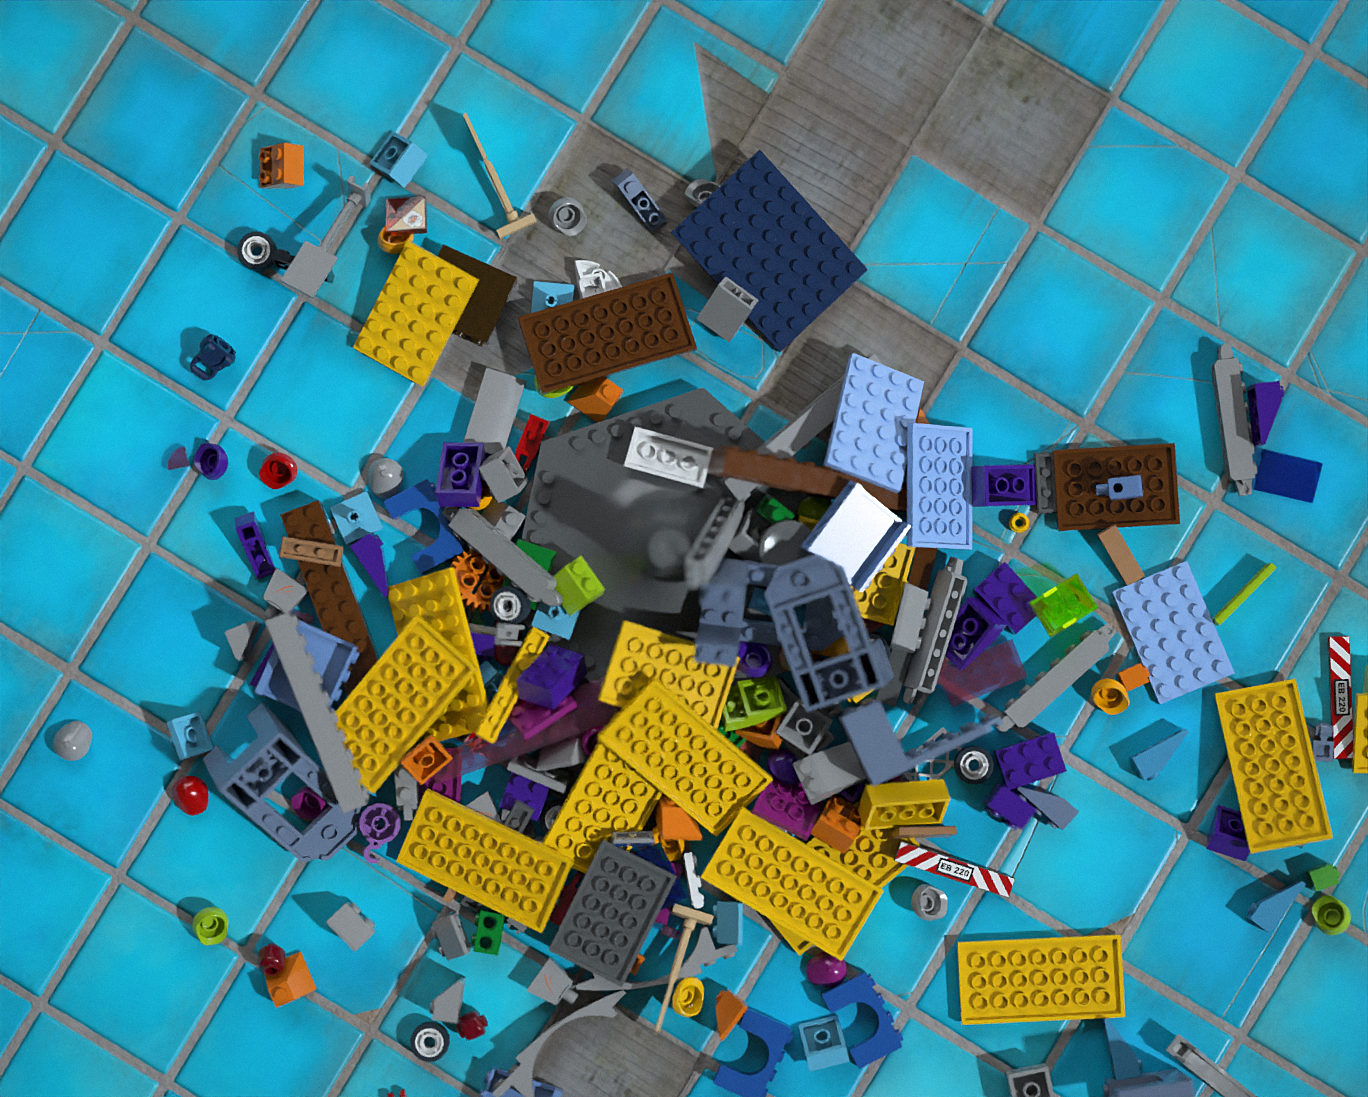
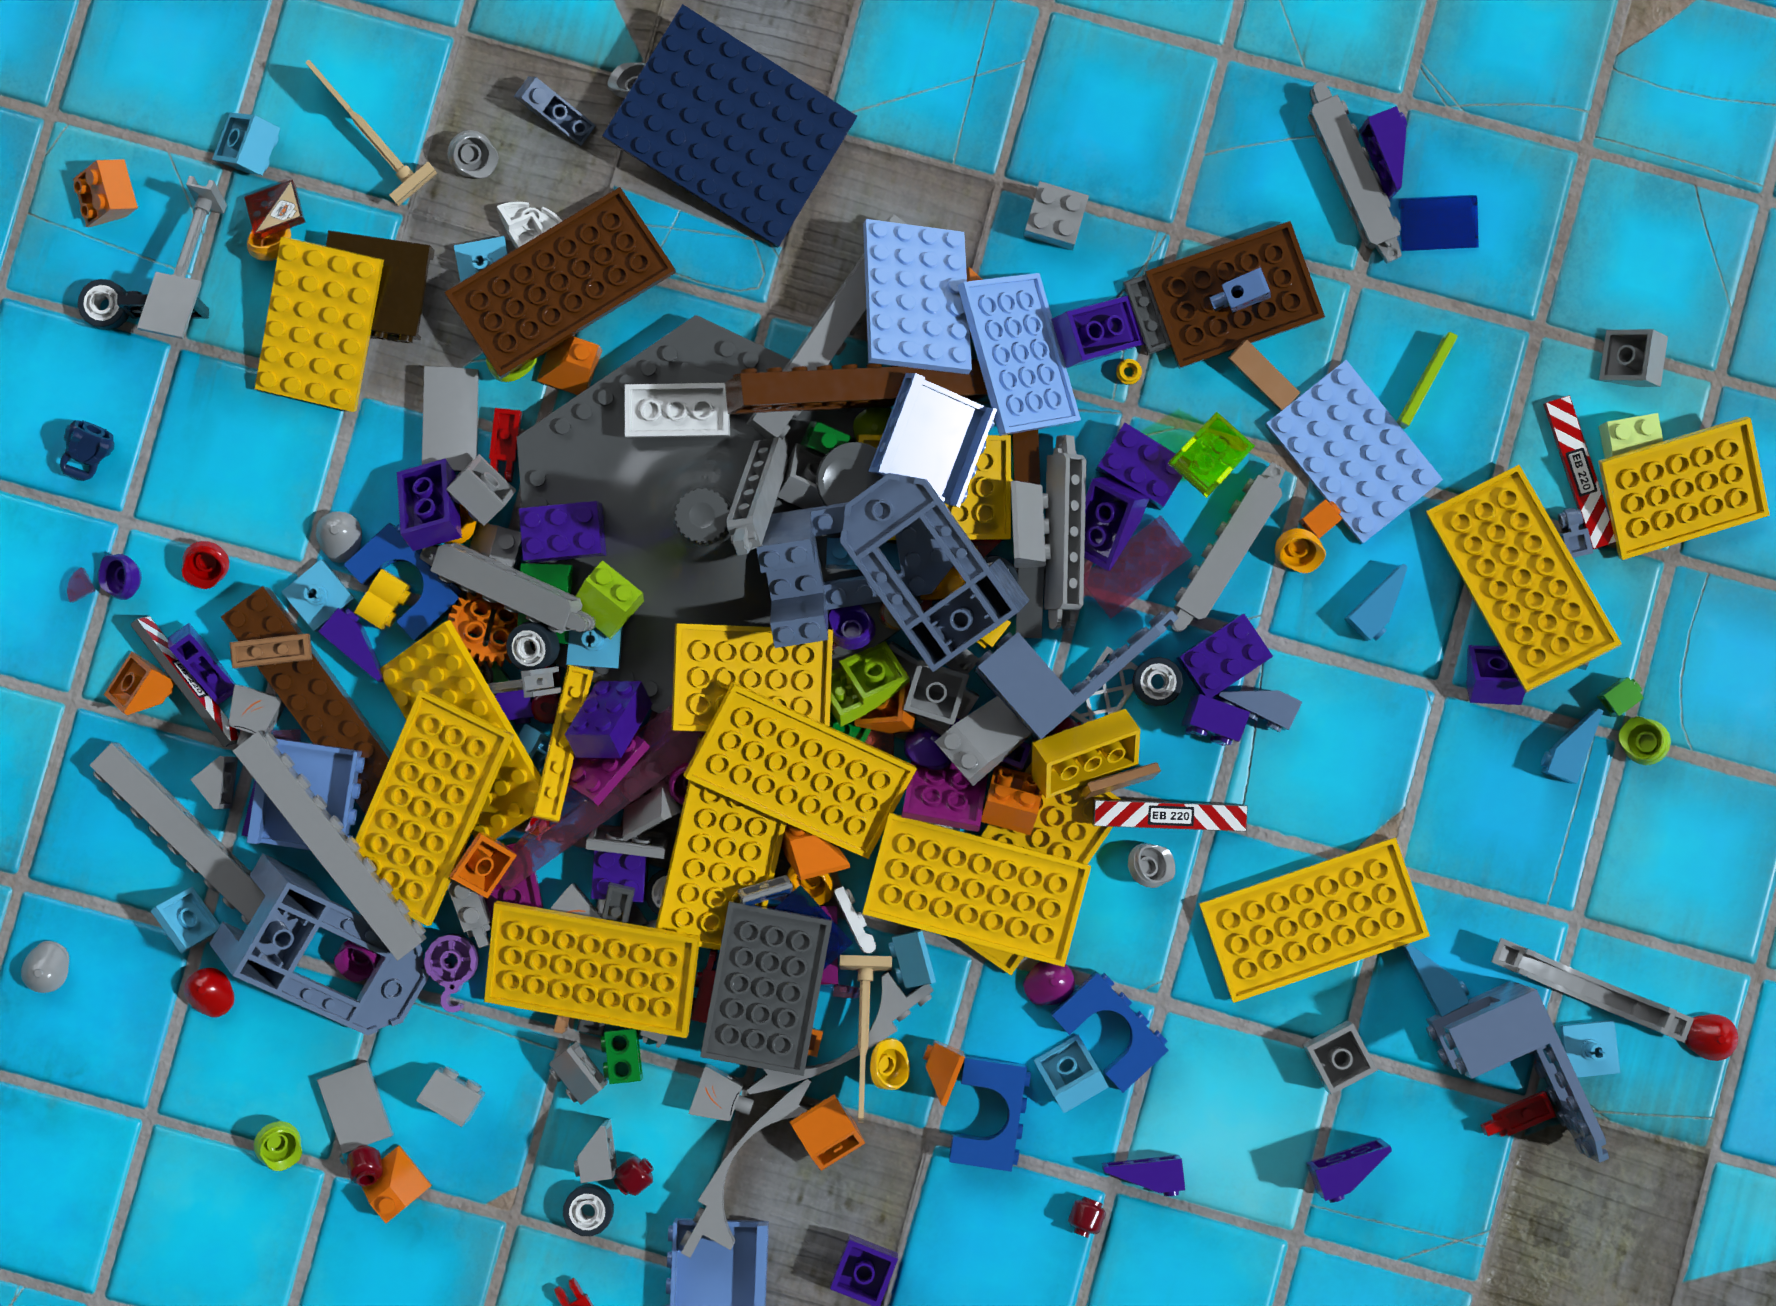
camera: 15 degrees left, 0 degrees up
(202, 548) = (139, 685): none -> orange slope
(204, 668) = (179, 828): none -> light grey brick
(239, 555) = (187, 684): none -> tile
(276, 913) = (355, 1107): none -> light grey tile
(405, 535) = (383, 599): none -> yellow brick
(556, 524) = (562, 531): none -> dark purple brick
(627, 1034) = (827, 1132): none -> orange slope
(727, 309) = (698, 211): light grey brick -> none
(997, 388) = (1056, 215): none -> light grey brick

